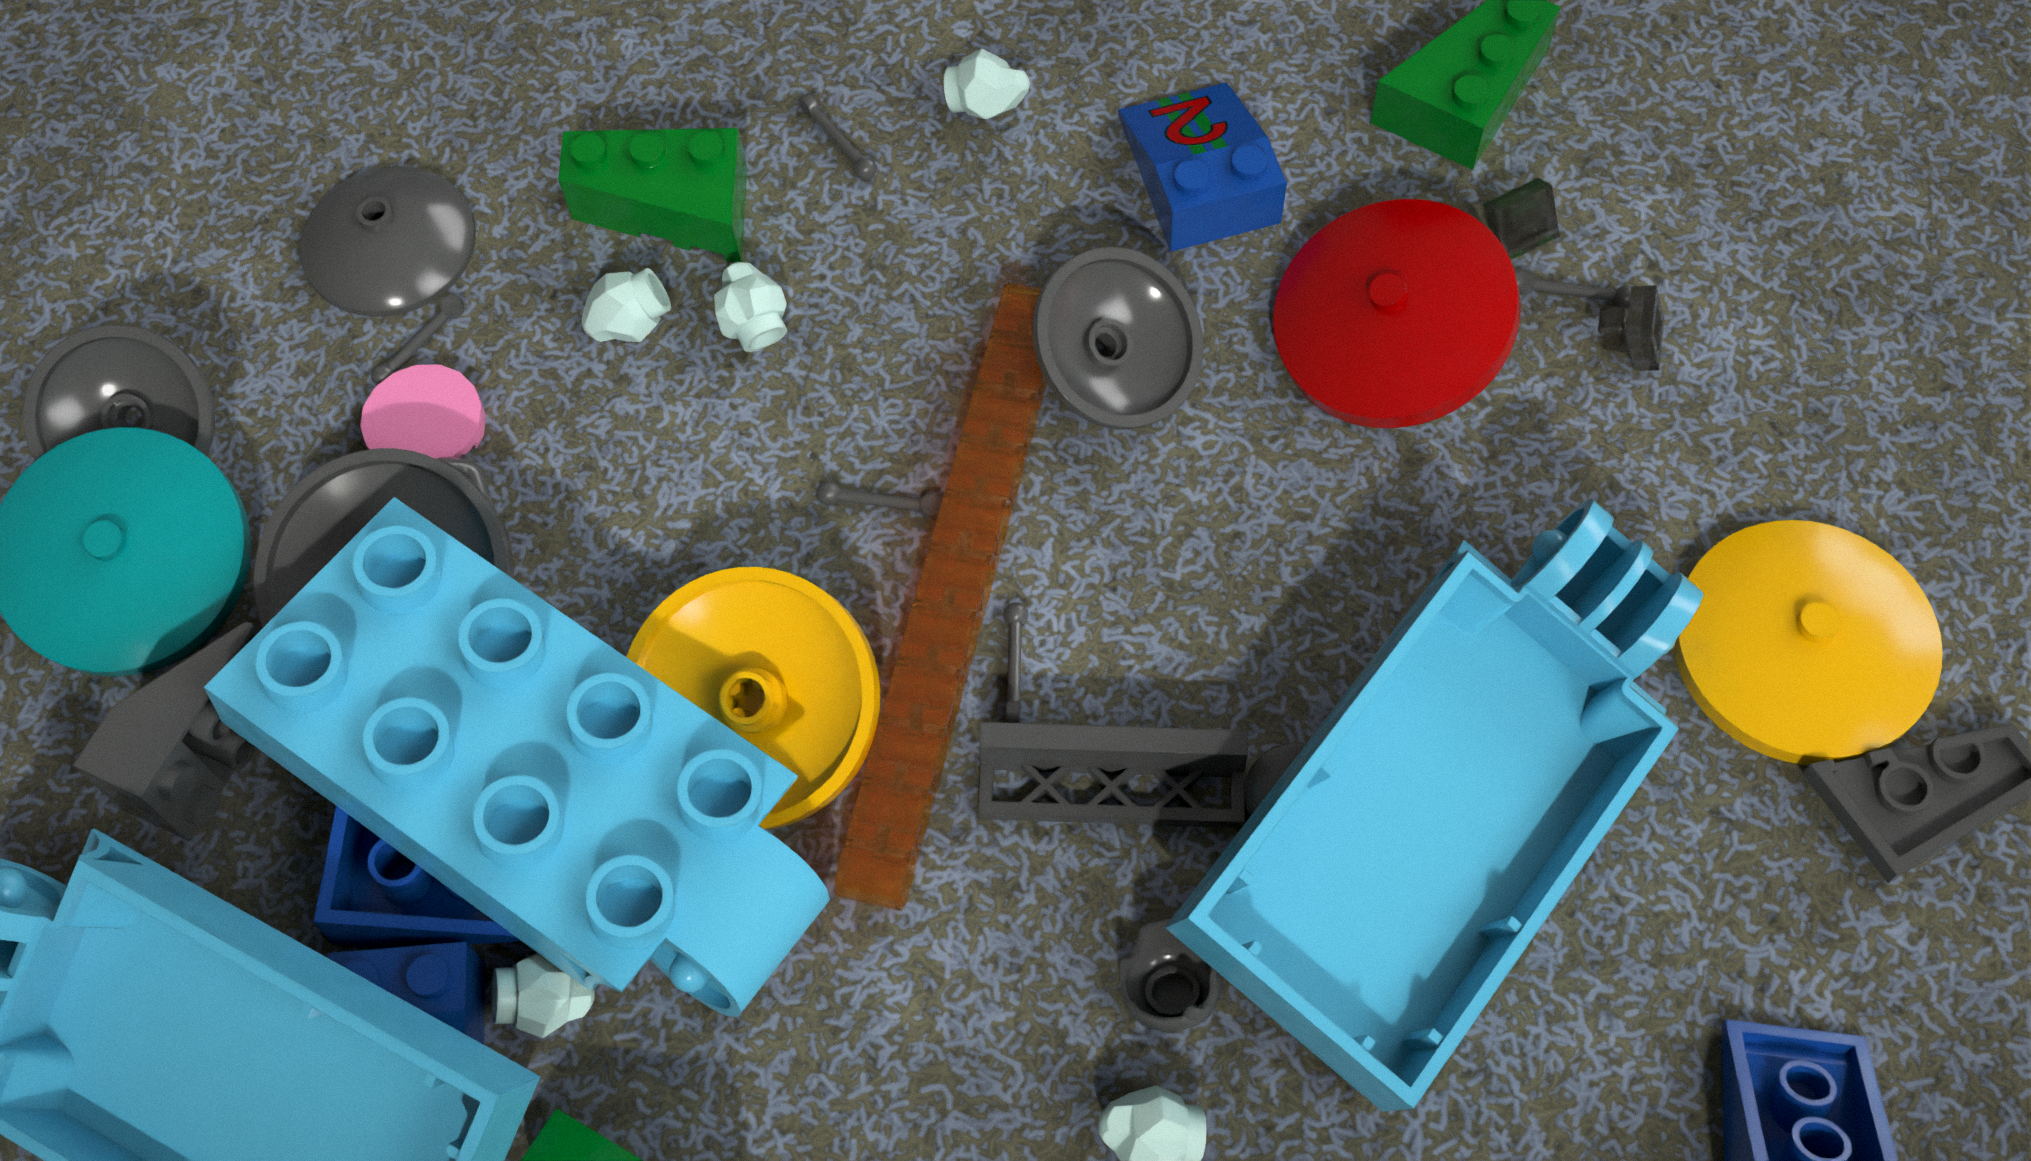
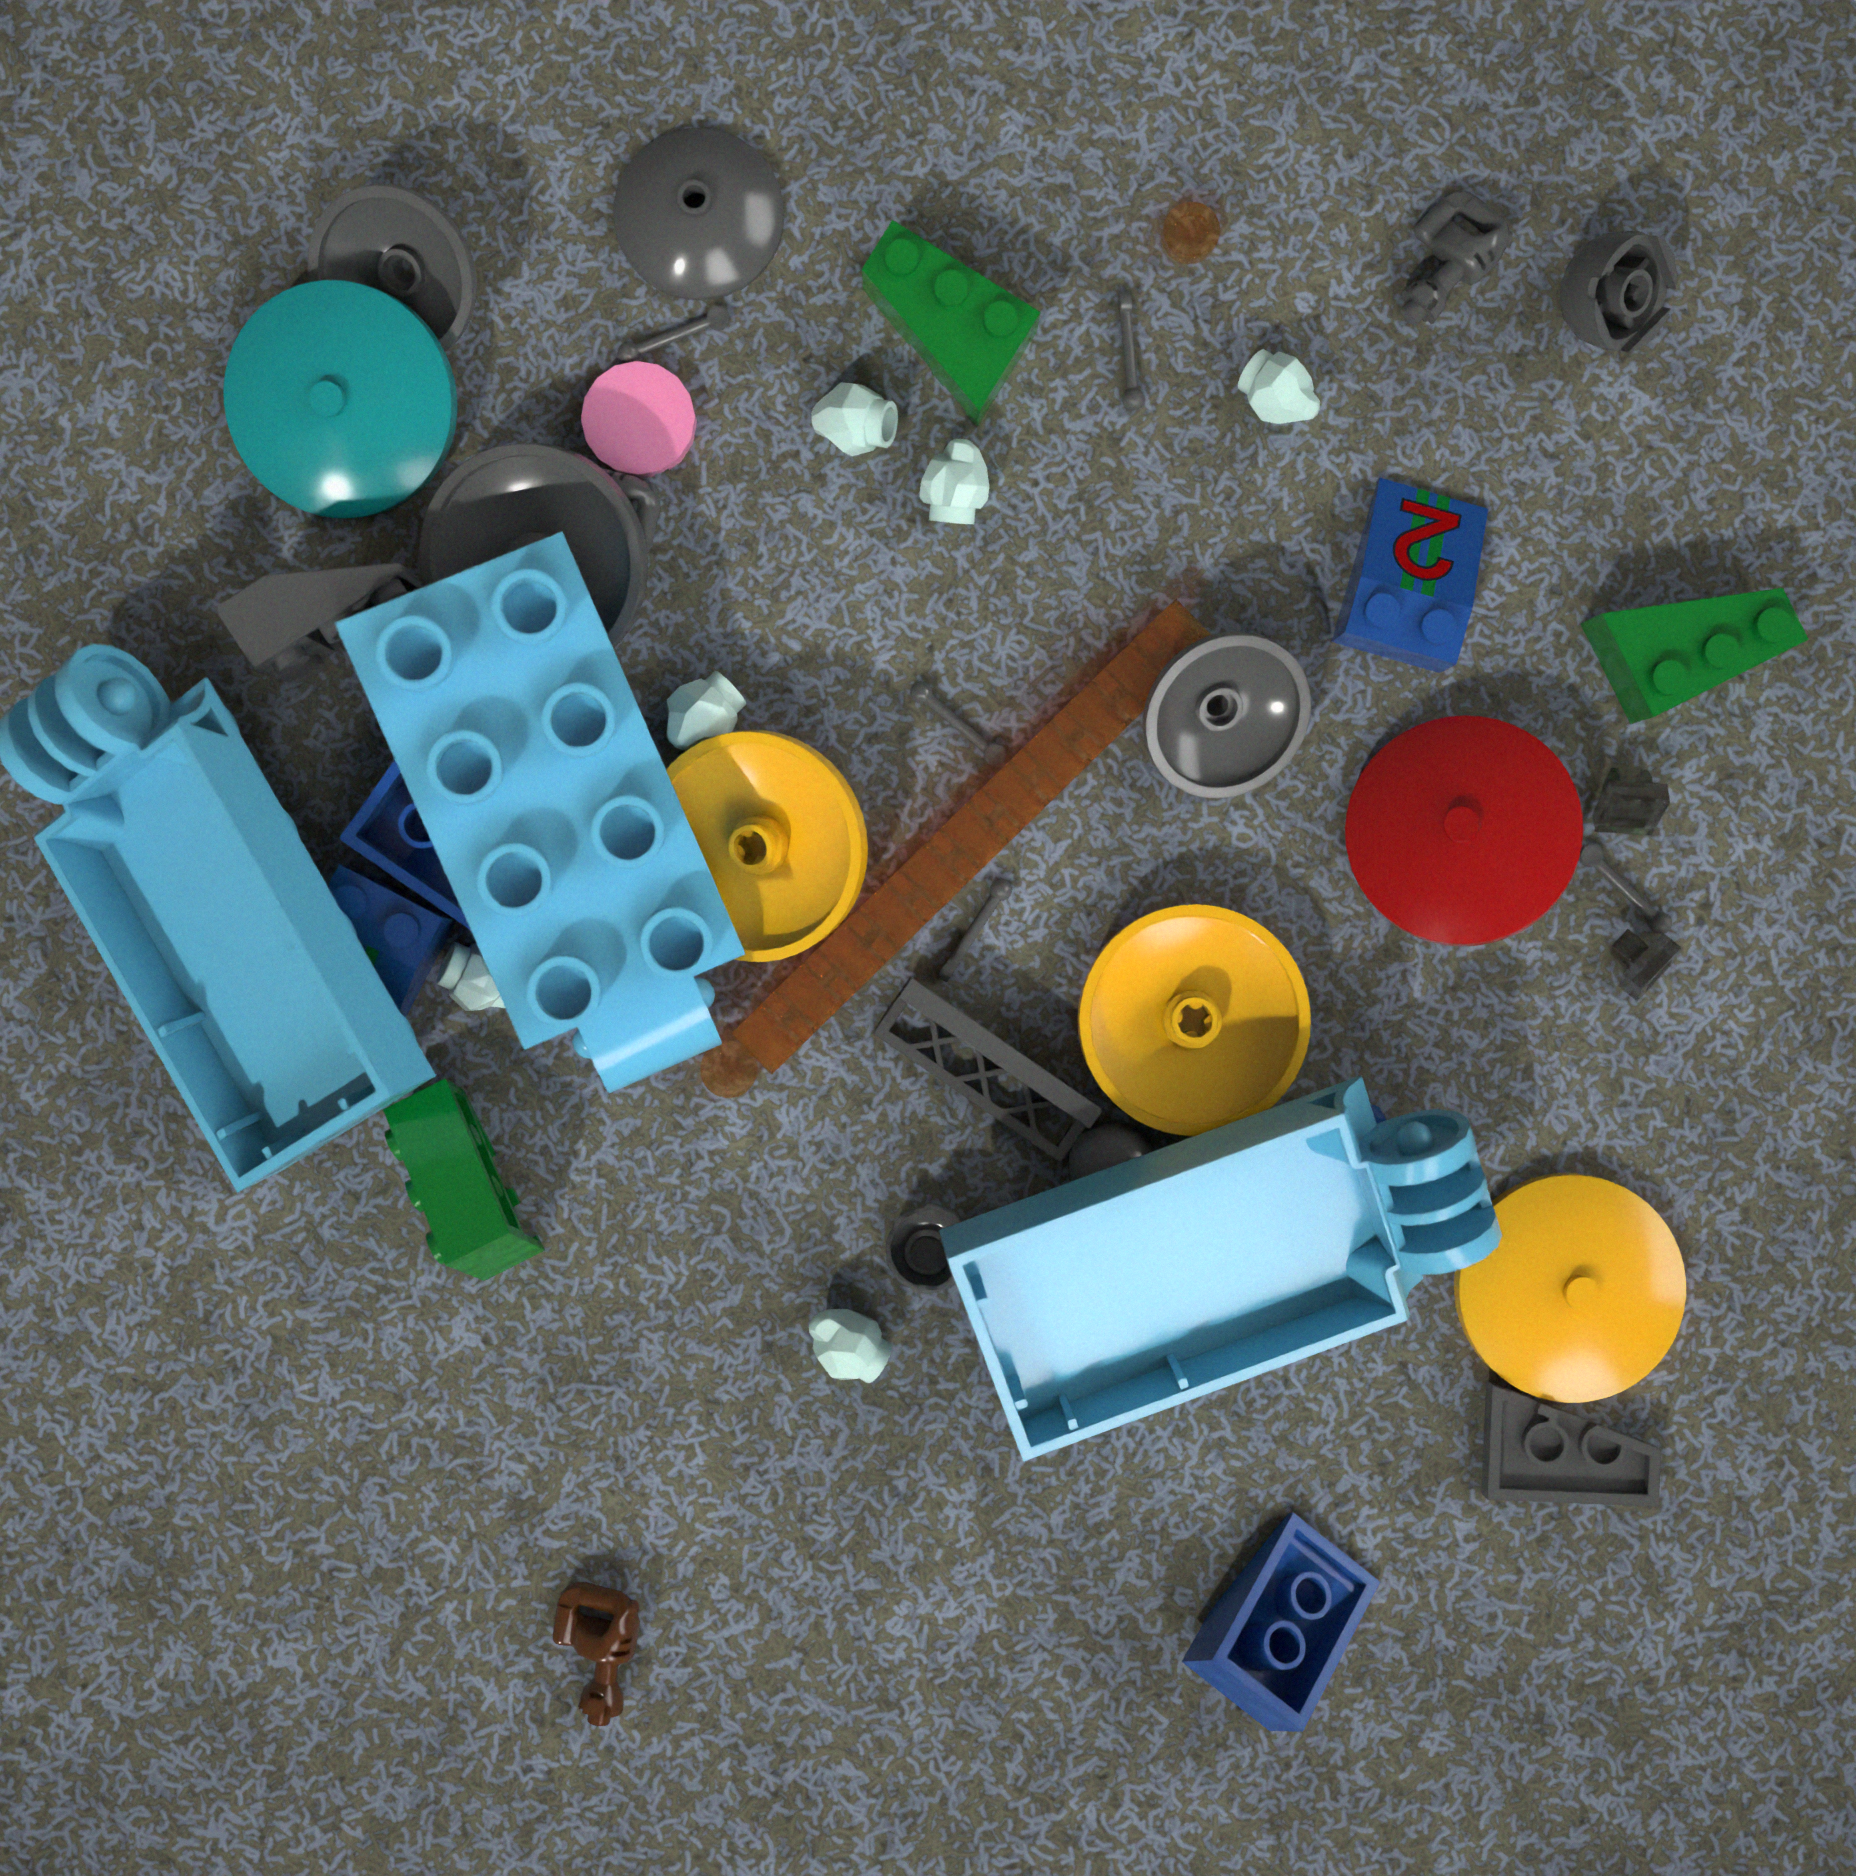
camera: 25 degrees right, 25 degrees up
(624, 607) = (702, 710): none -> light aqua rock
(831, 30) = (1190, 233): none -> clear orange tile
(854, 937) = (728, 1069): none -> clear orange tile
(1271, 603) = (1194, 1019): none -> yellow dish

